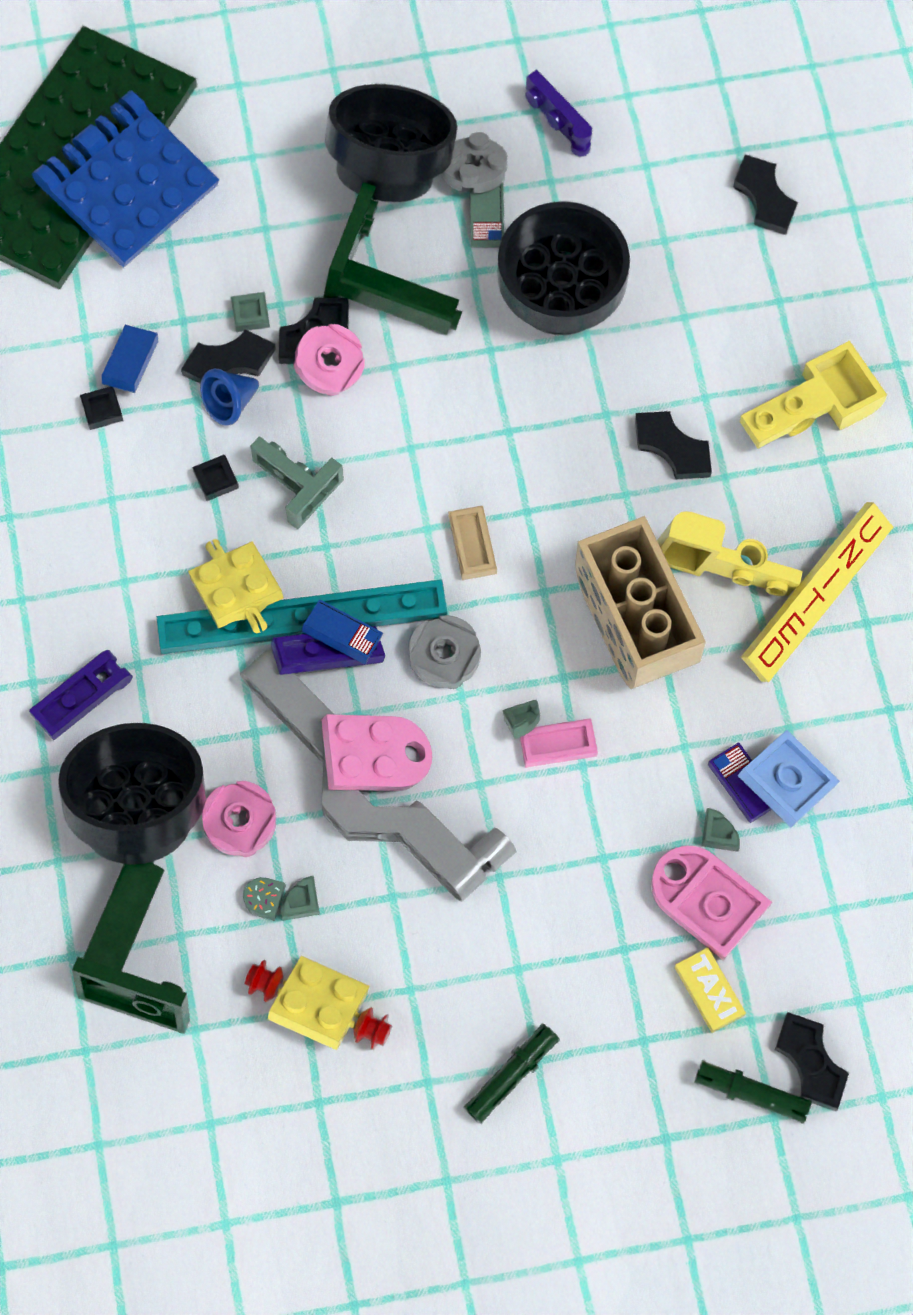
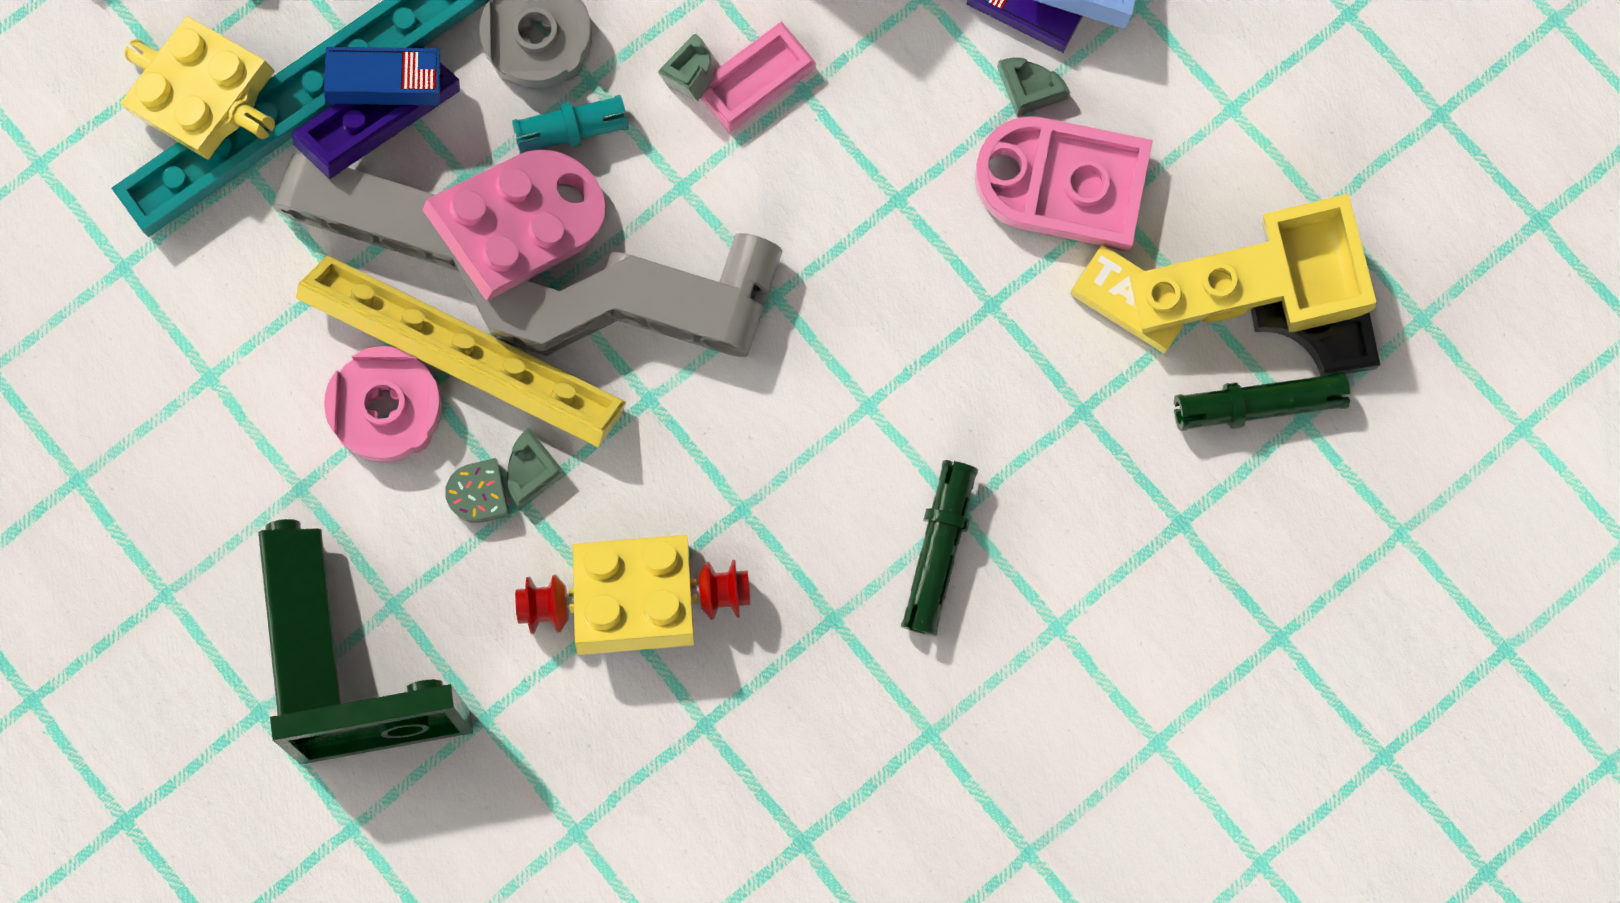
camera: 30 degrees left, 10 degrees up
(80, 694) = (65, 351): dark purple plate -> none
(132, 791) = (215, 447): black wheel -> none
(300, 811) = (461, 350): none -> light yellow tile
(434, 714) = (570, 124): none -> teal pin
(821, 1021) = (1307, 263): none -> light yellow plate

